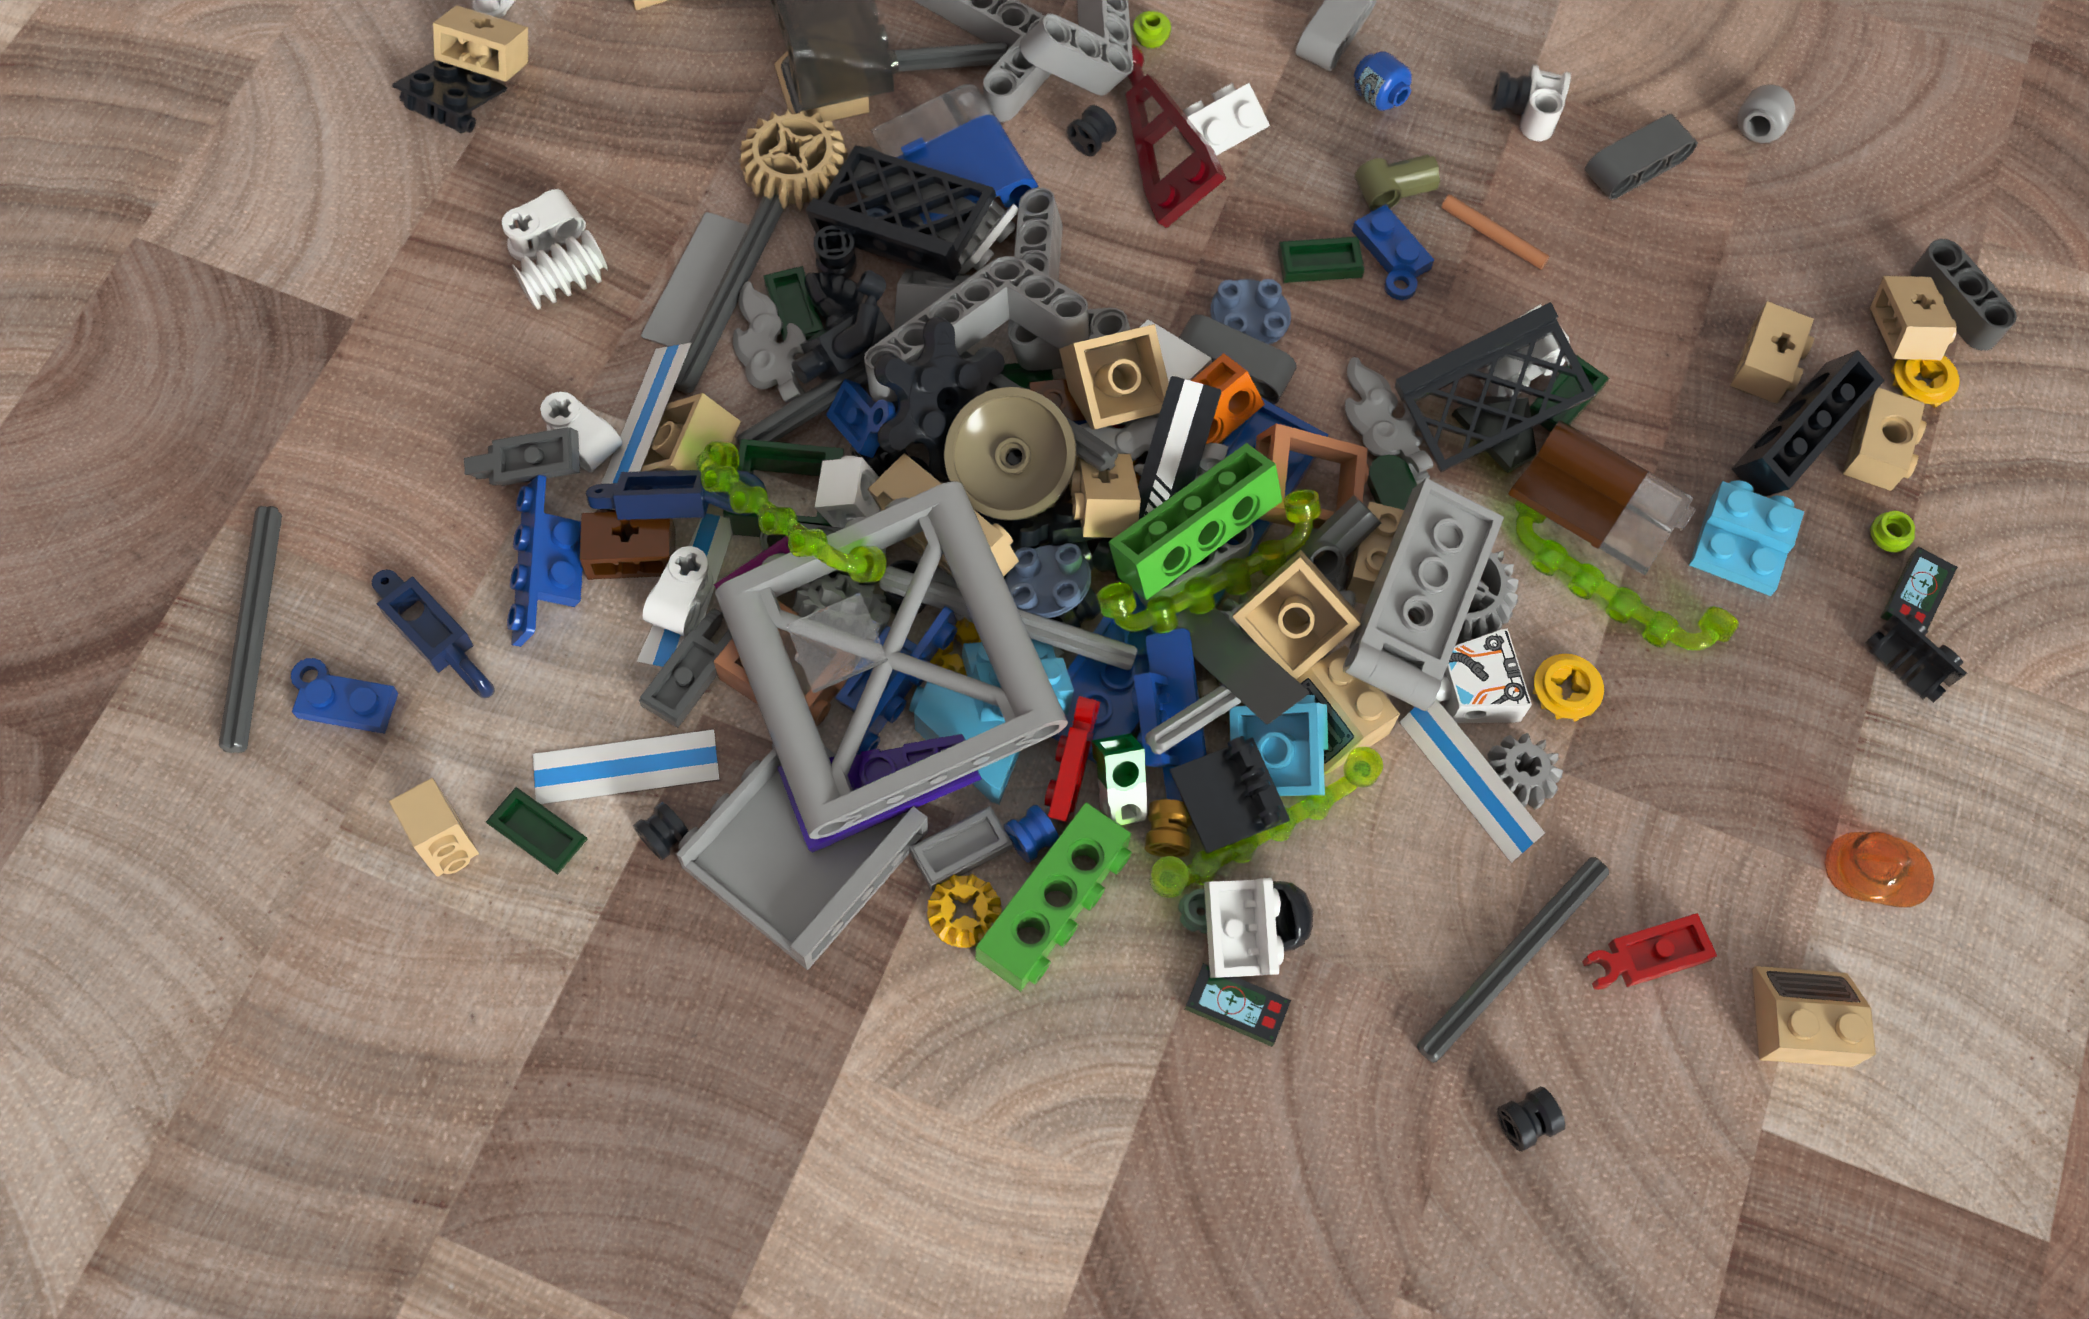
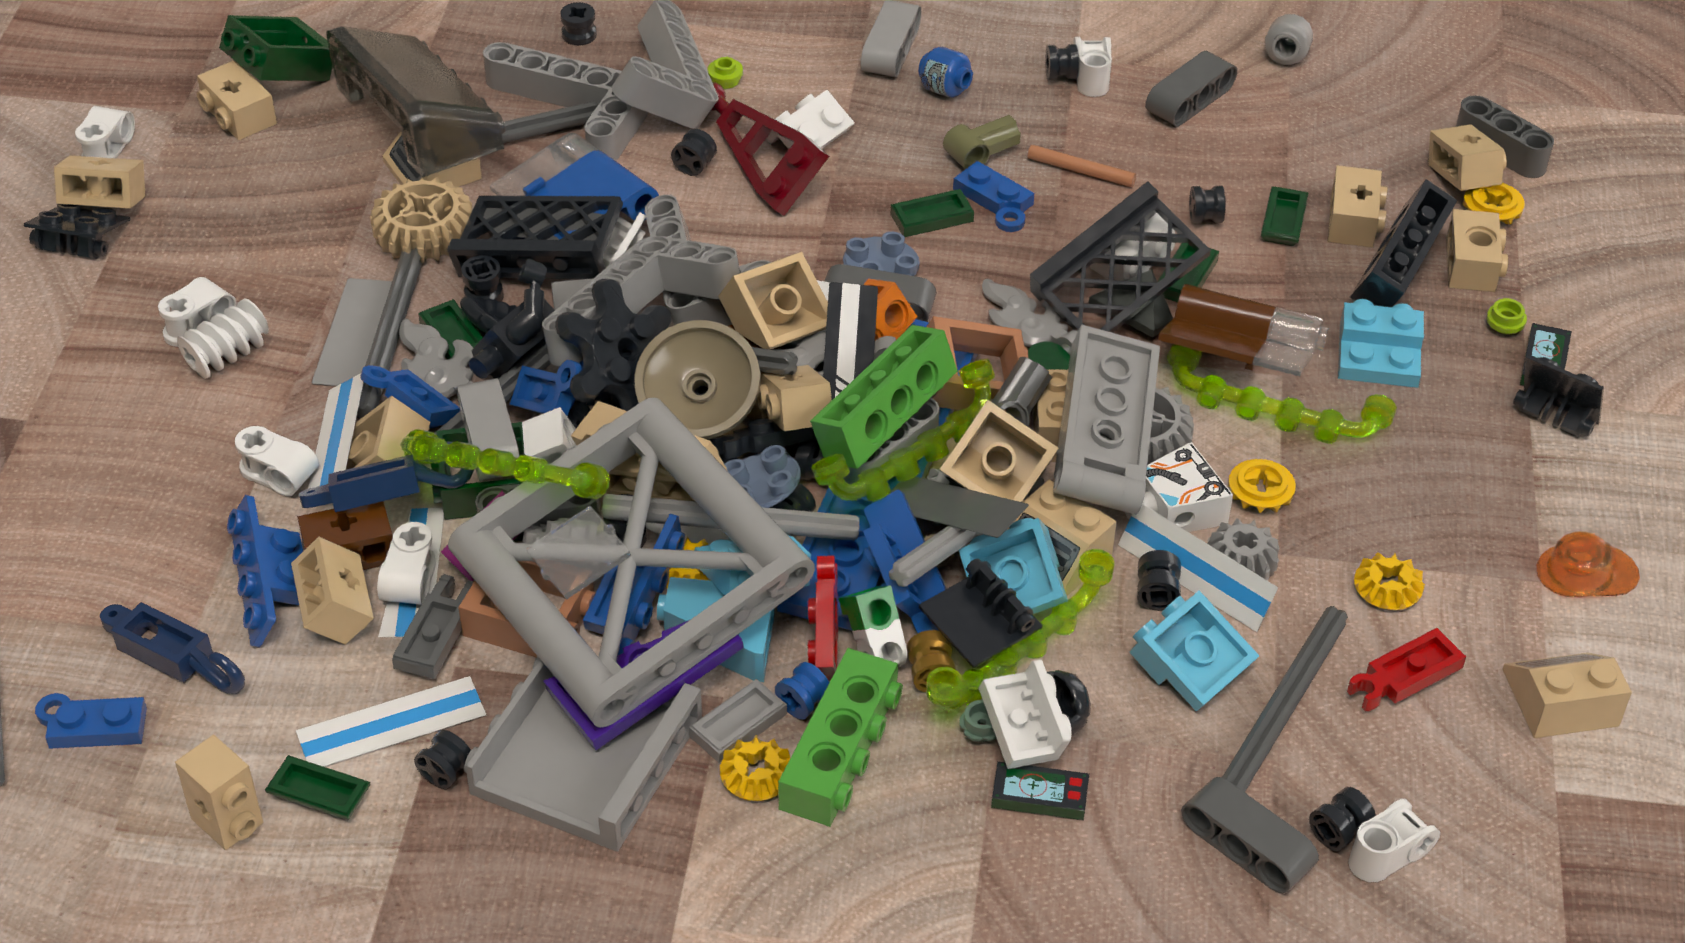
camera: 10 degrees left, 20 degrees down
(526, 456) = (227, 486): dark grey hinge -> none
(597, 608) = (332, 591): none -> tan brick
(732, 380) = (413, 393): none -> blue hinge
(790, 453) = (486, 418): none -> light grey beam
(1427, 784) = (1159, 579): none -> black wheel
(1432, 1114) = (1250, 835): none -> dark grey beam
(1437, 880) = (1193, 649): none -> medium azure plate
(1579, 1152) = (1390, 842): none -> white piece
(1613, 315) = (1207, 204): none -> black wheel
(1665, 856) = (1390, 594): none -> yellow gear
(1693, 345) = (1284, 216): none -> dark green tile

